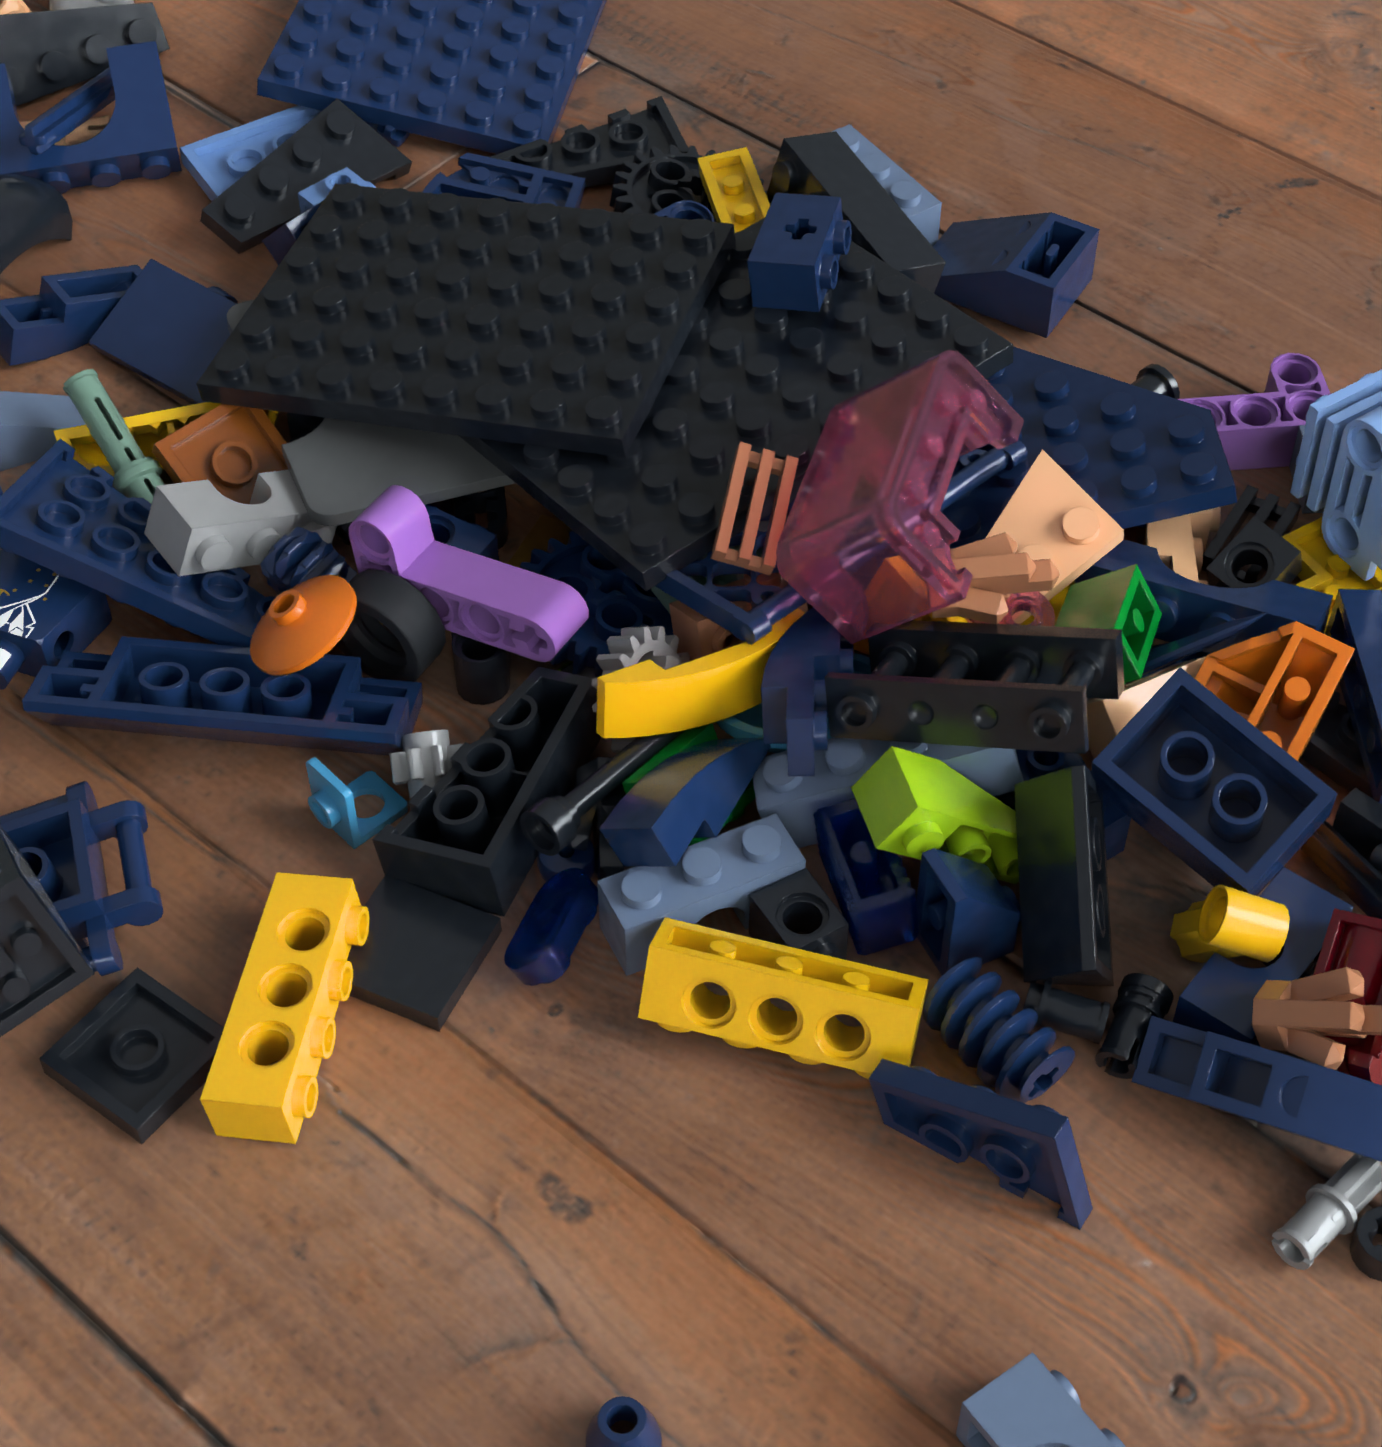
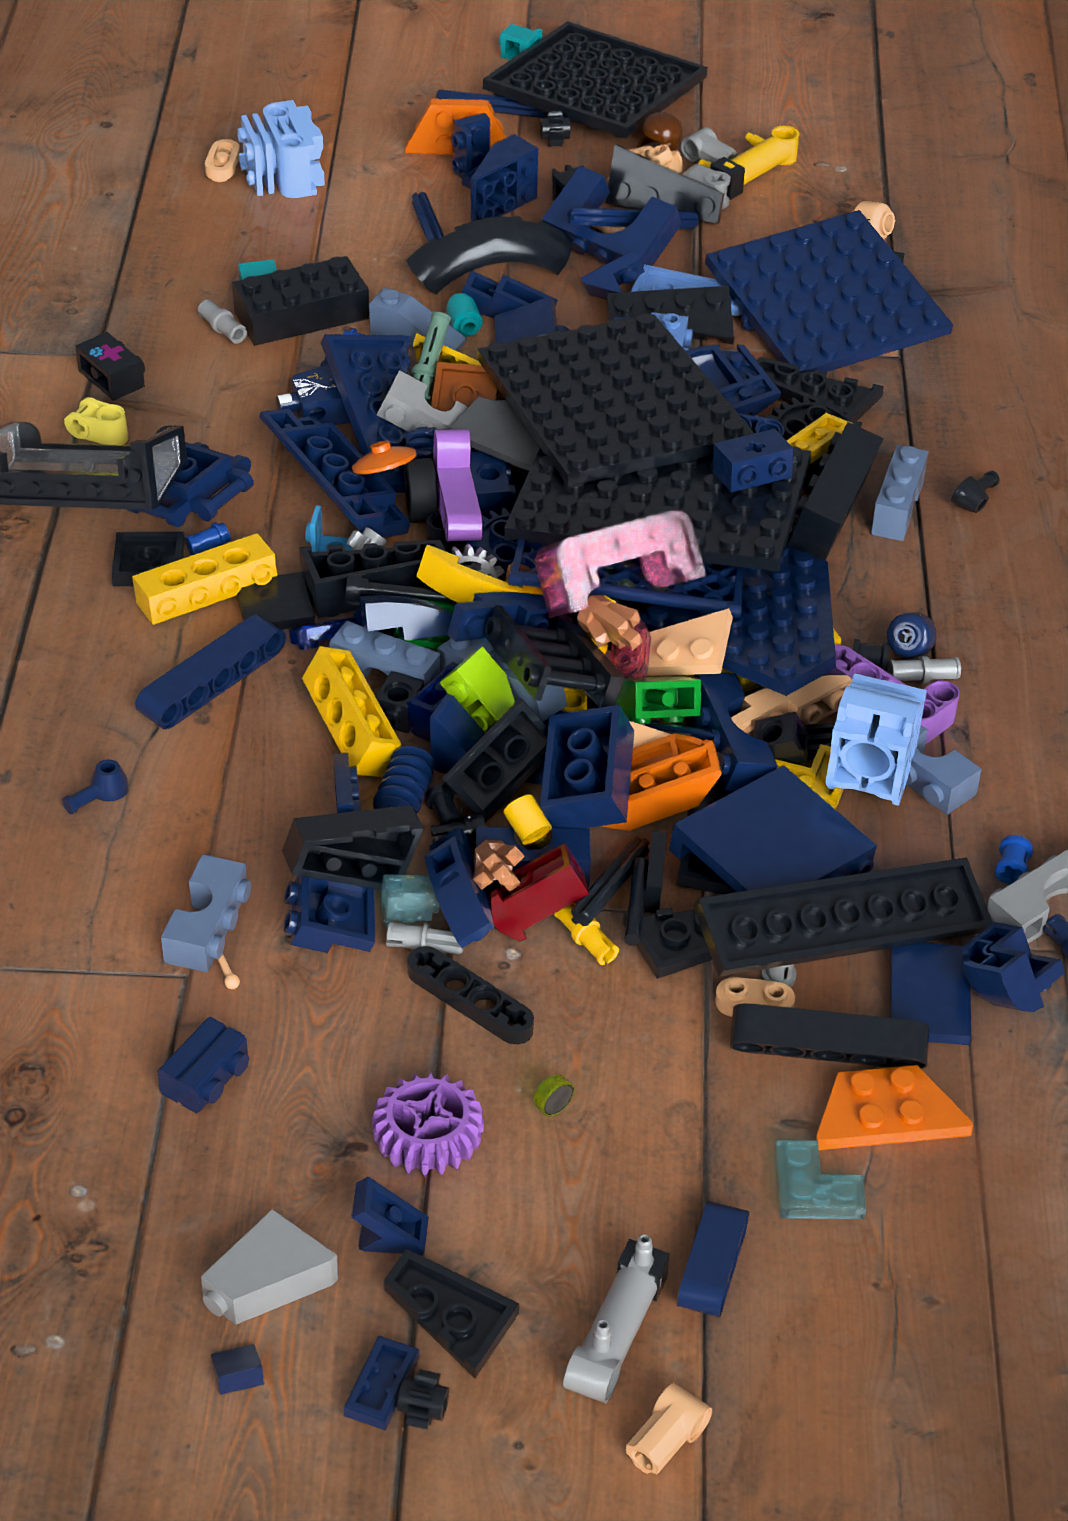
camera: 50 degrees right, 5 degrees down
(45, 364) = (464, 314): none -> teal brick
(174, 196) = (613, 274): none -> dark blue slope
(192, 932) = (208, 538): none -> blue pin
(504, 1134) = (210, 671): none -> dark blue beam
(765, 464) = (574, 525): nougat tile -> none
(929, 145) = (971, 492): none -> black bar
(1017, 267) = (907, 568): dark blue slope -> none
(1132, 1174) = (353, 845): none -> black wedge
(1150, 335) = (922, 633): none -> dark blue head
(1200, 1302) = (329, 915): none -> dark blue plate
(1210, 365) = (925, 669): none -> light grey pin
(1244, 1180) = (407, 899): none -> clear light blue brick

